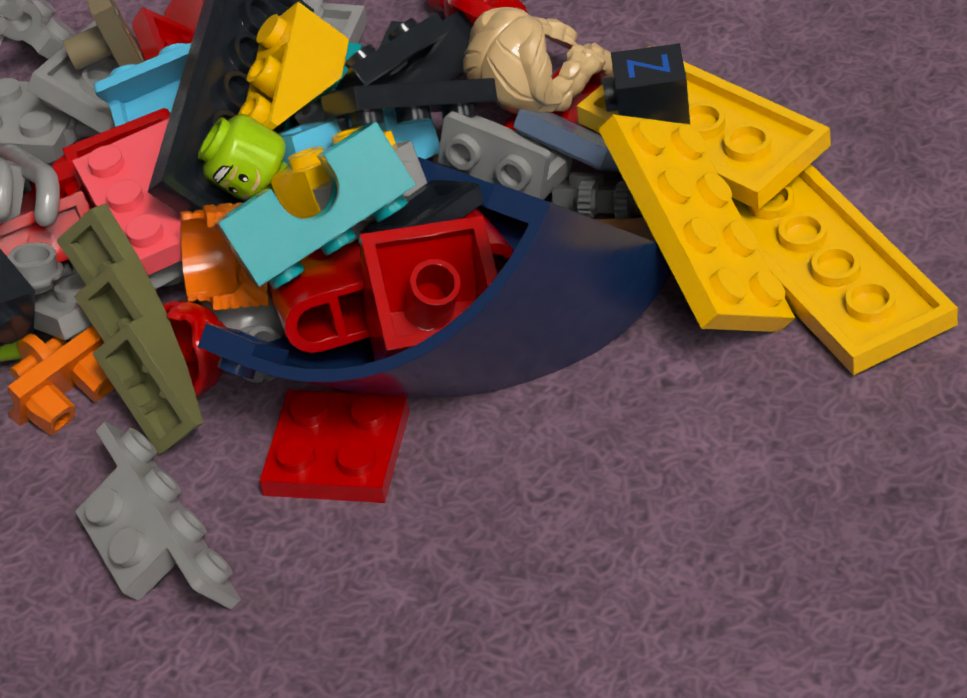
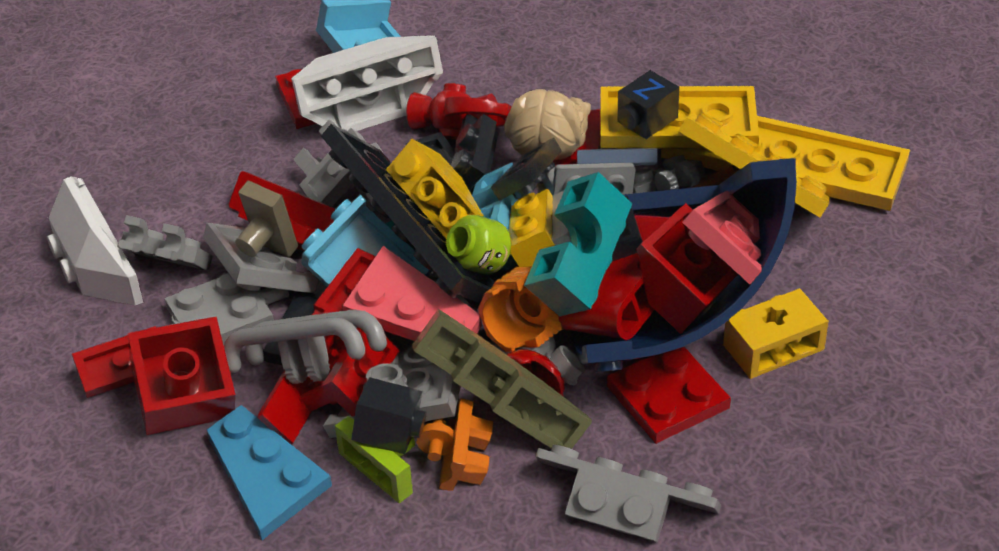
camera: 45 degrees left, 0 degrees up
(450, 263) = (729, 231): none -> coral wing
(513, 442) = (775, 333): none -> yellow brick

